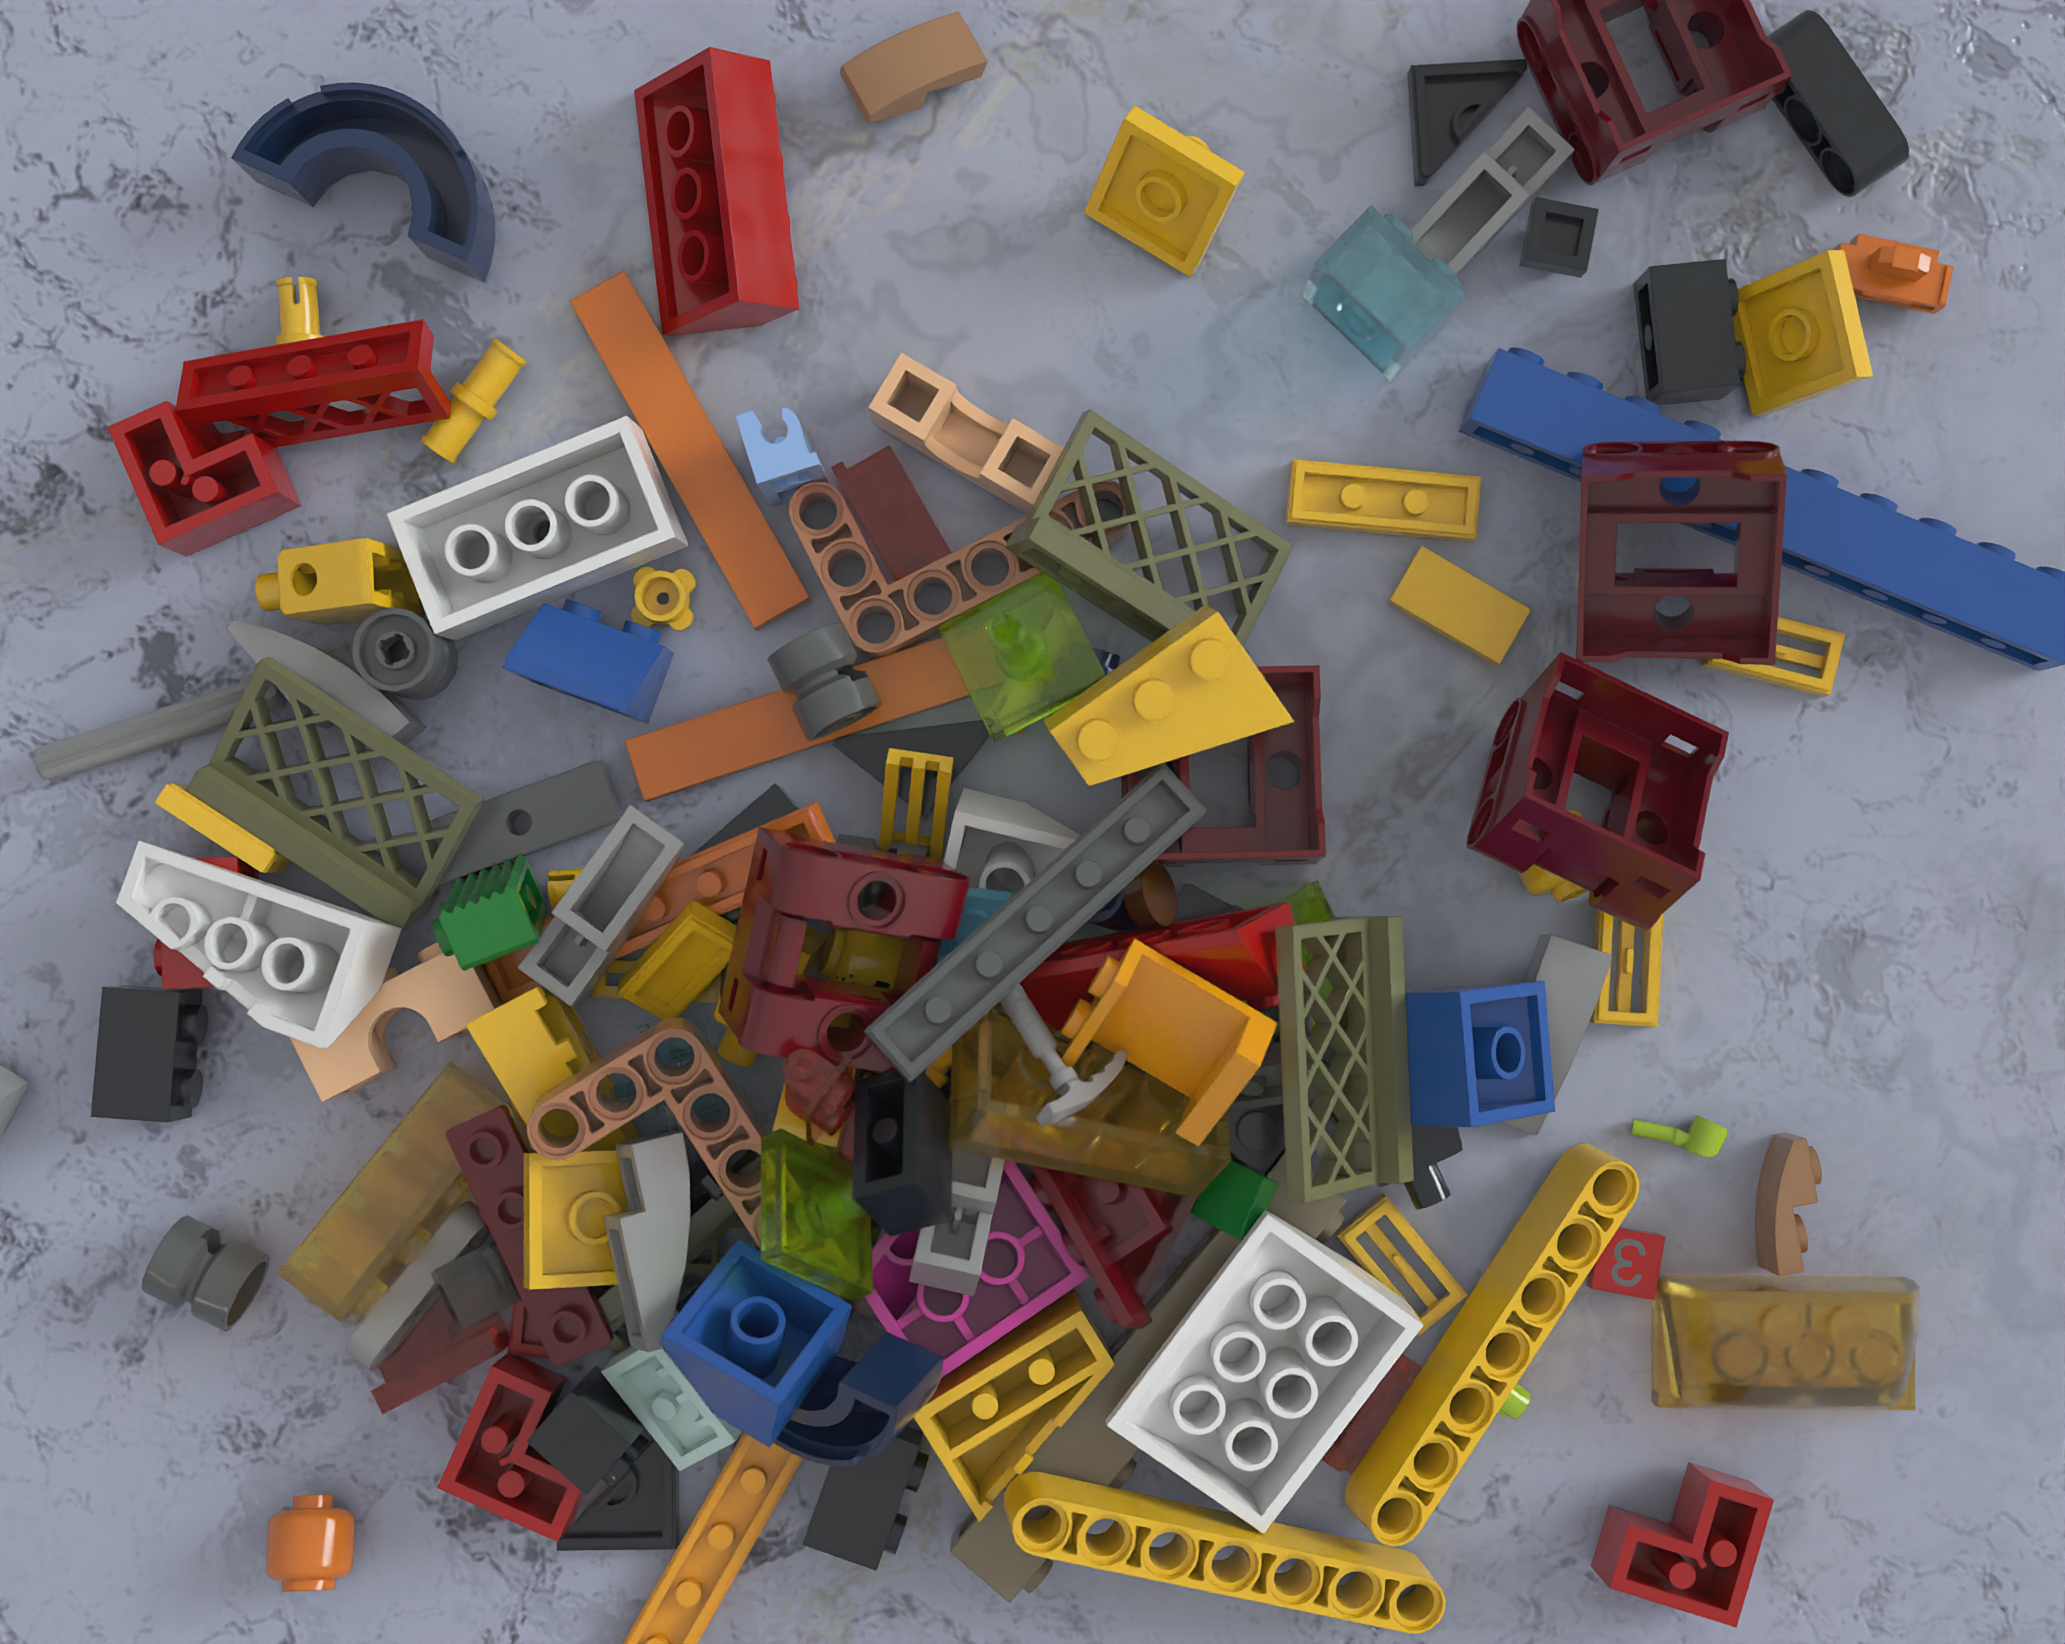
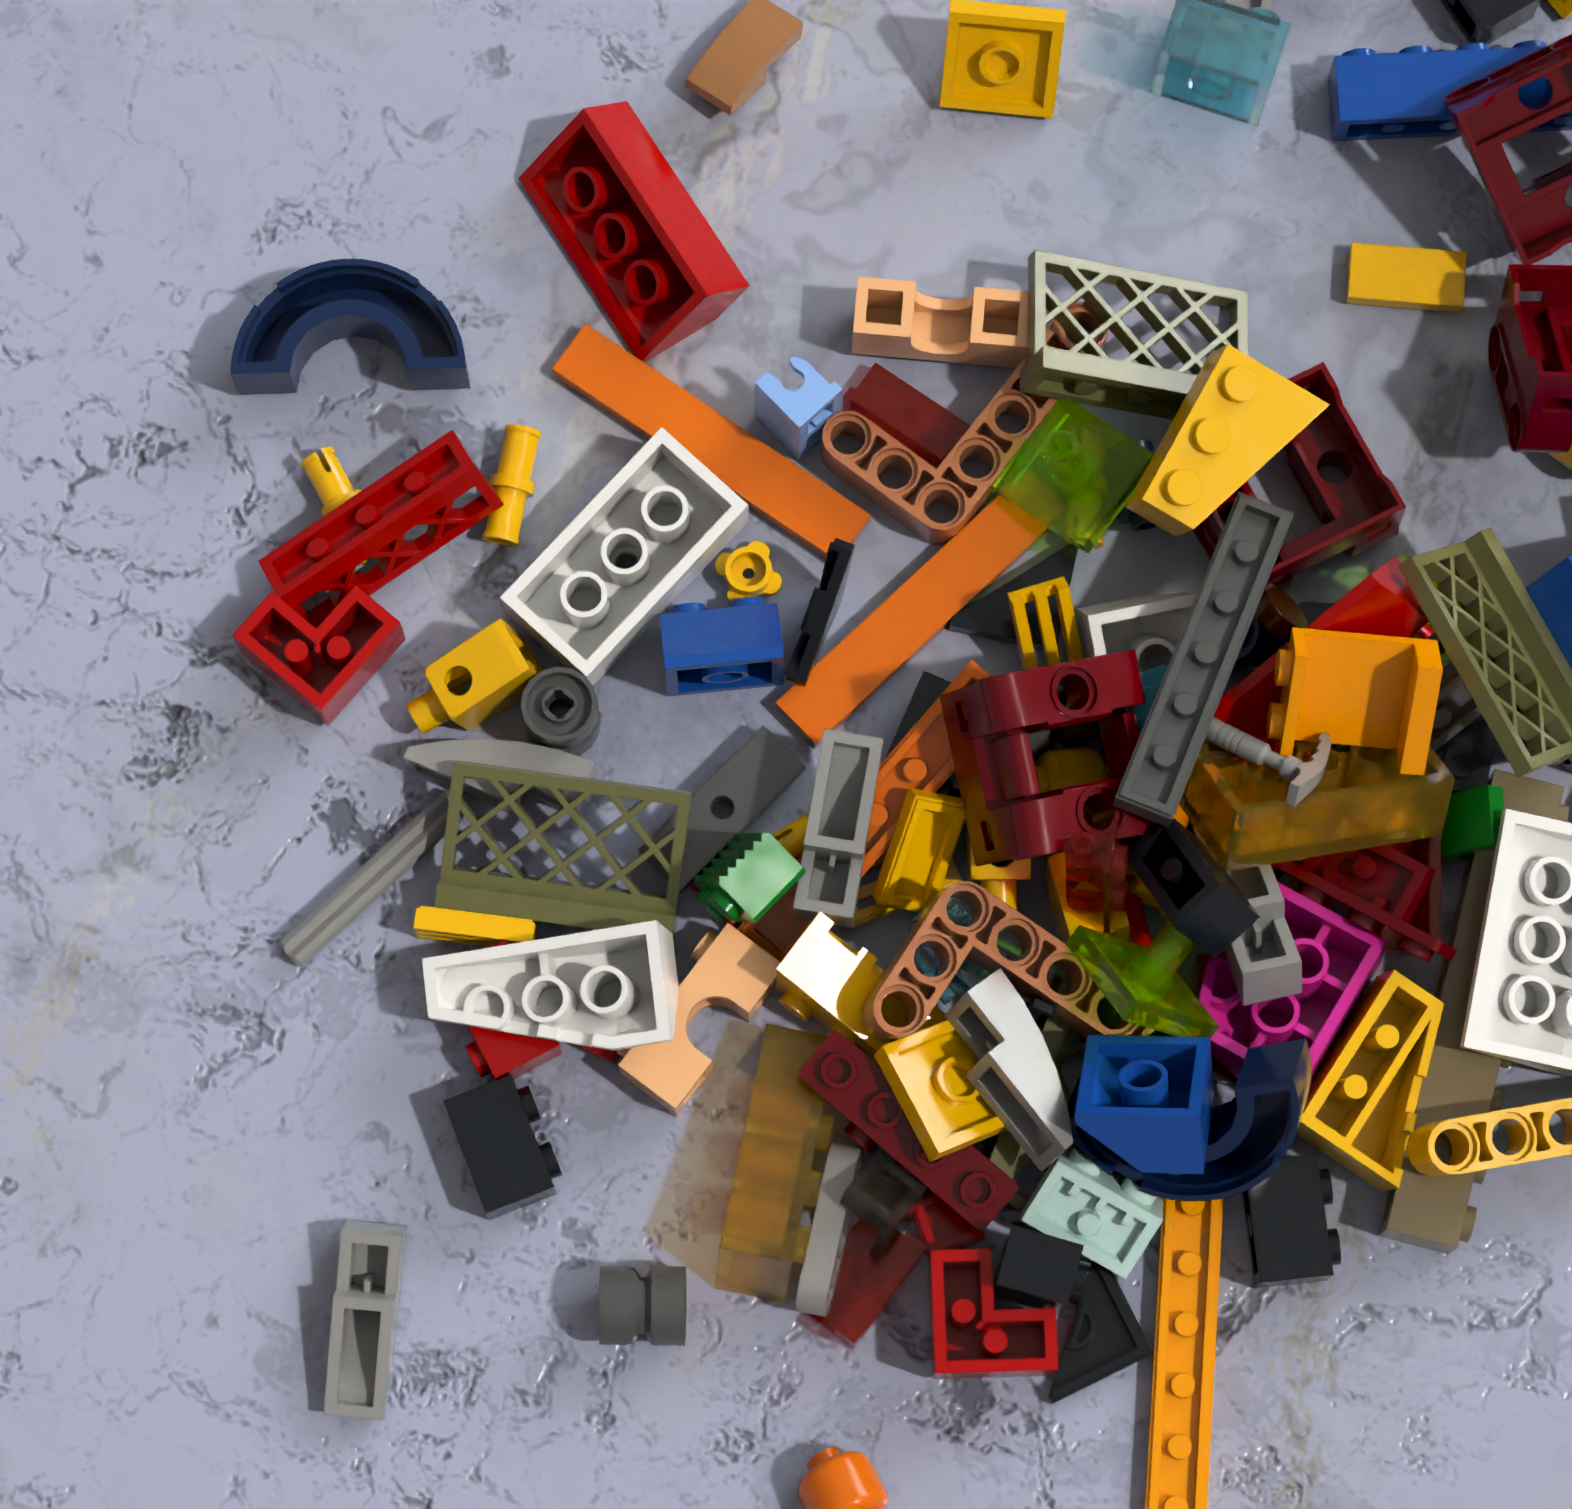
camera: 25 degrees left, 10 degrees down
(704, 677) = (821, 611): none -> black tile
(823, 679) = (924, 569): dark grey wheel -> none
(1383, 500) = (1300, 223): yellow tile -> none

